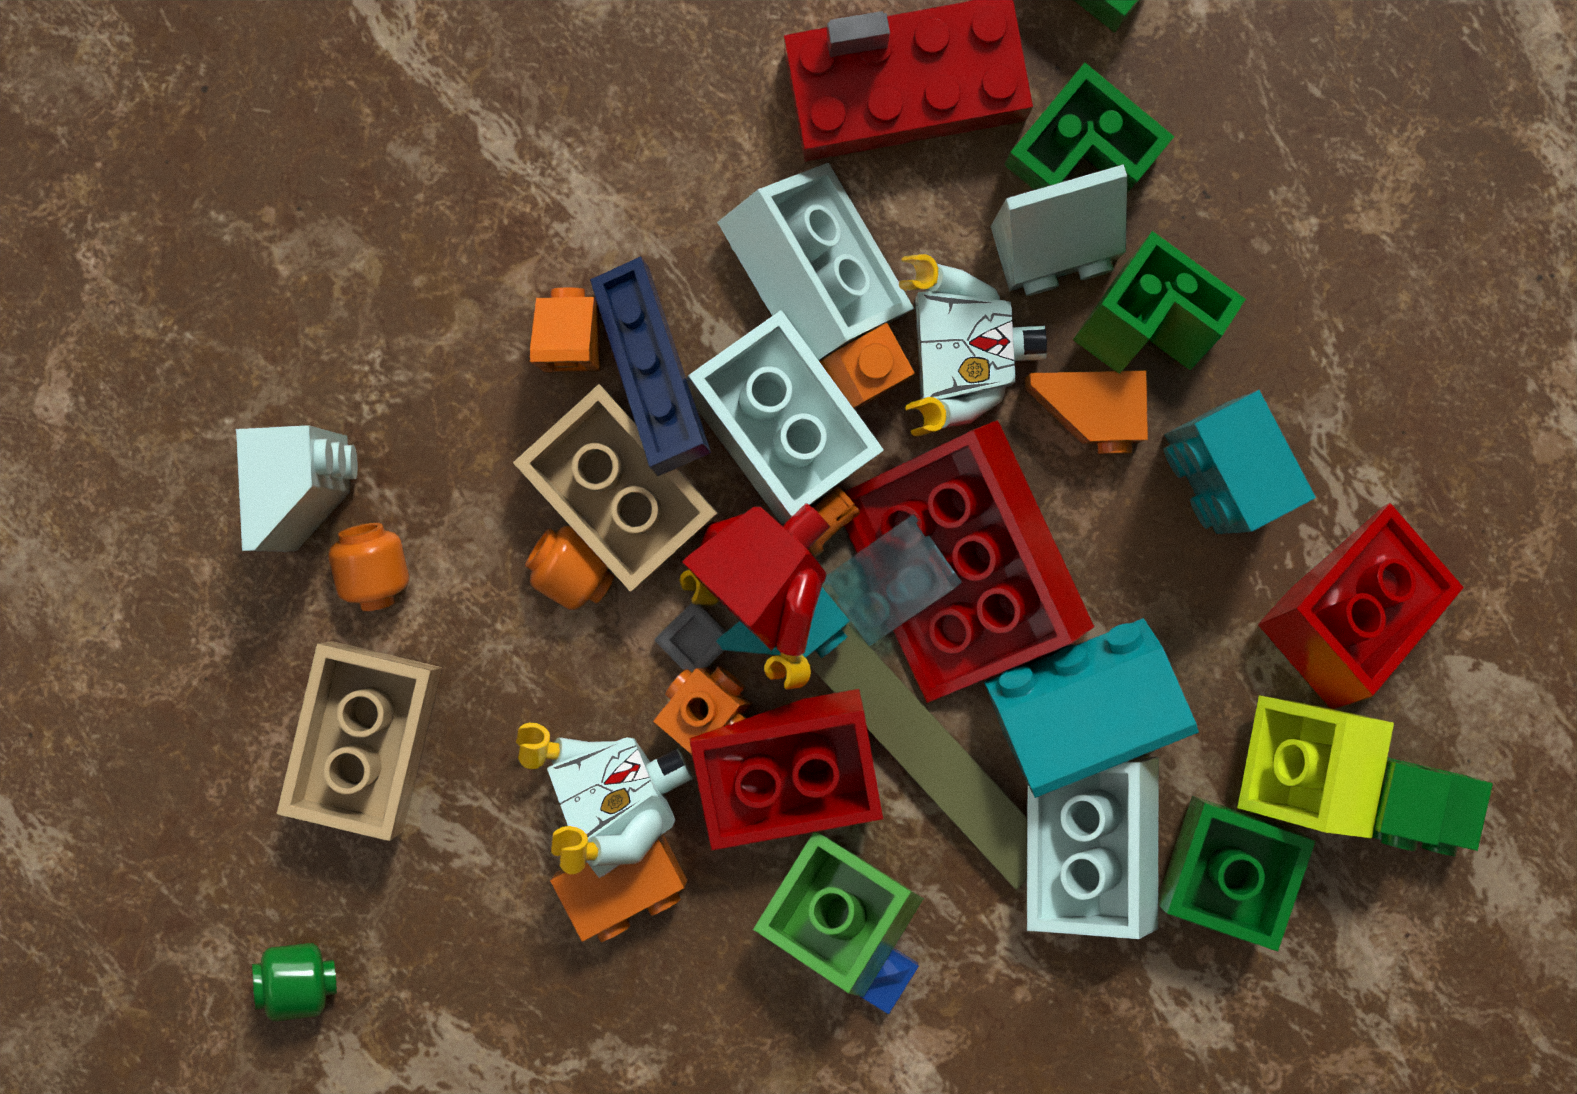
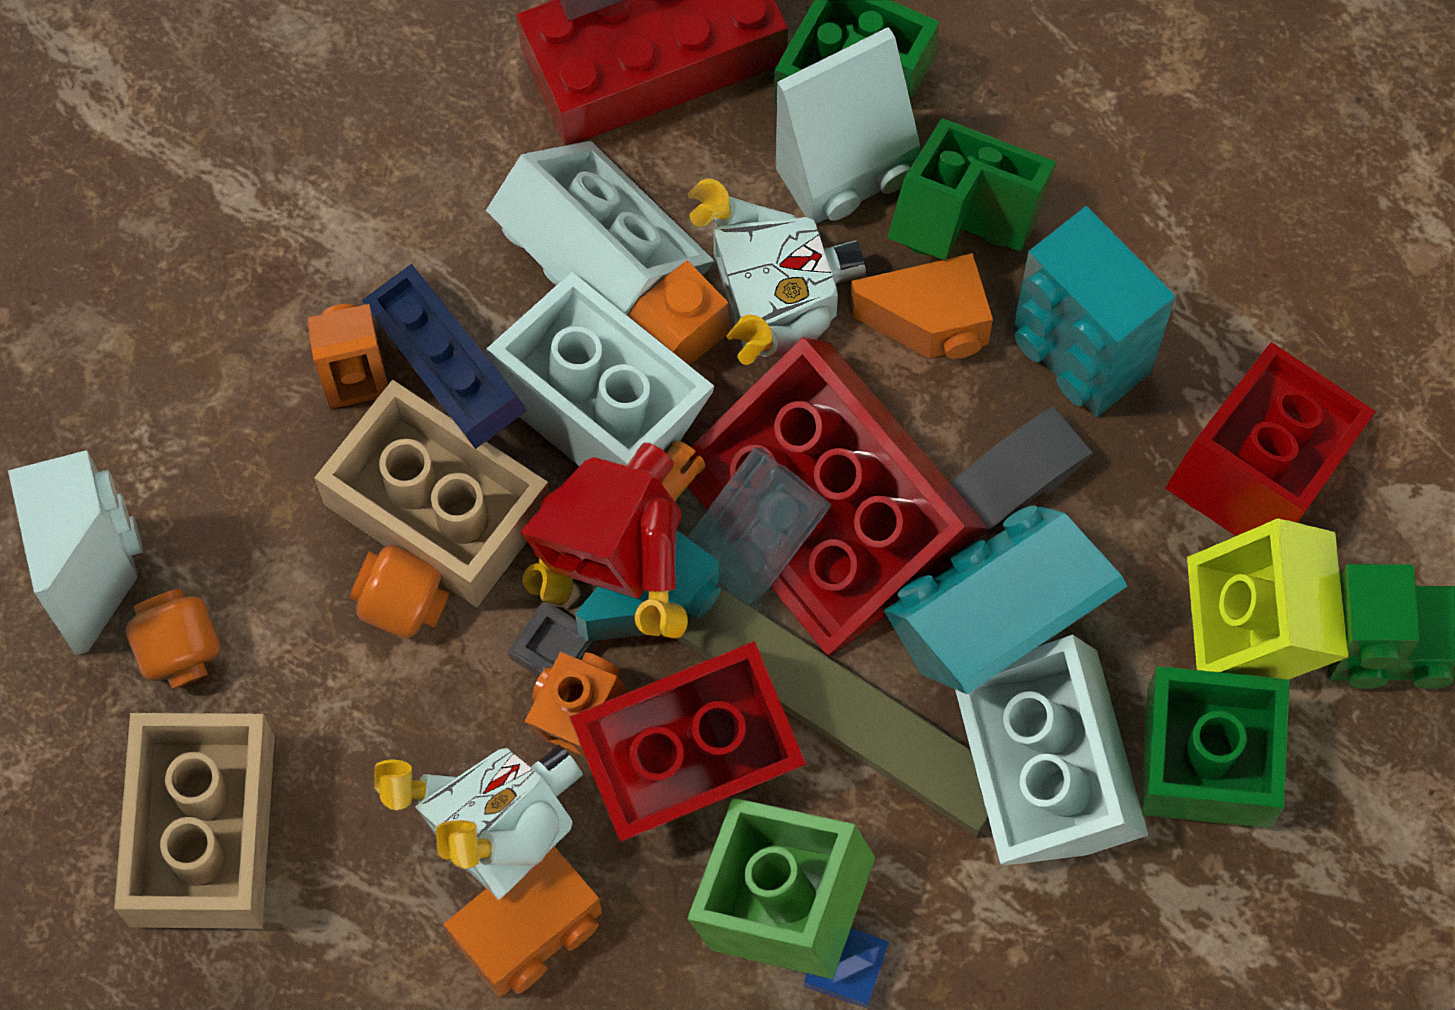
camera: 15 degrees left, 20 degrees down
(1138, 573) = (1022, 467): none -> dark grey slope

